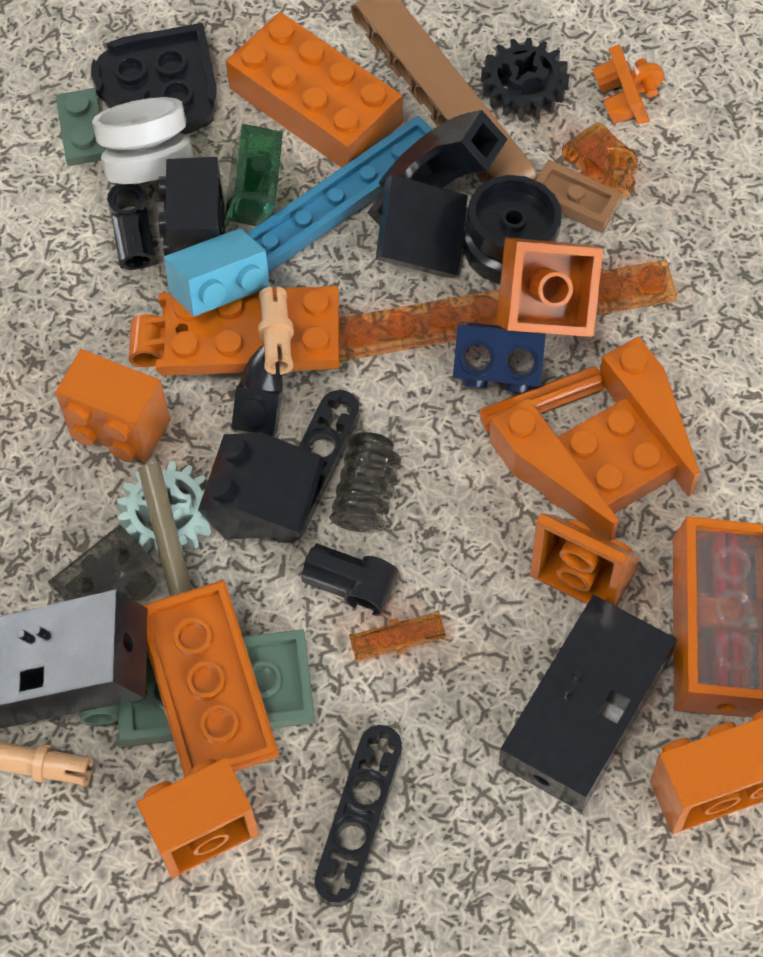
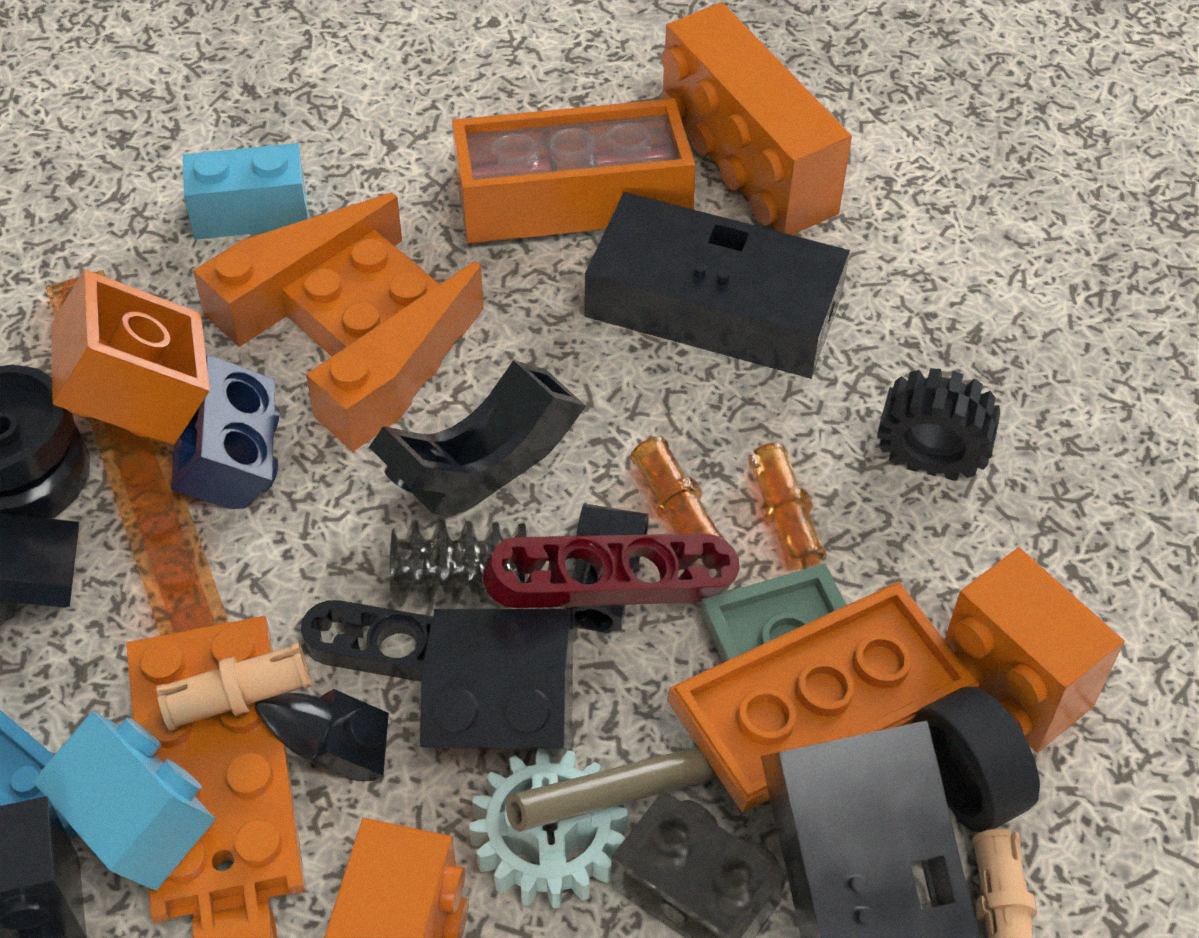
camera: 105 degrees left, 10 degrees down
(132, 761) = (981, 758): none -> black tyre
(317, 565) = (610, 559): none -> dark red beam
(356, 814) = (930, 494): black beam -> none
(374, 708) = (786, 506): none -> clear orange pin
(407, 823) = (964, 417): none -> black tyre
(467, 525) = (488, 448): none -> black arch
(550, 394) = (295, 412): orange axle -> none
(579, 561) = (537, 288): orange slope -> none
(736, 385) = (244, 190): none -> medium azure brick

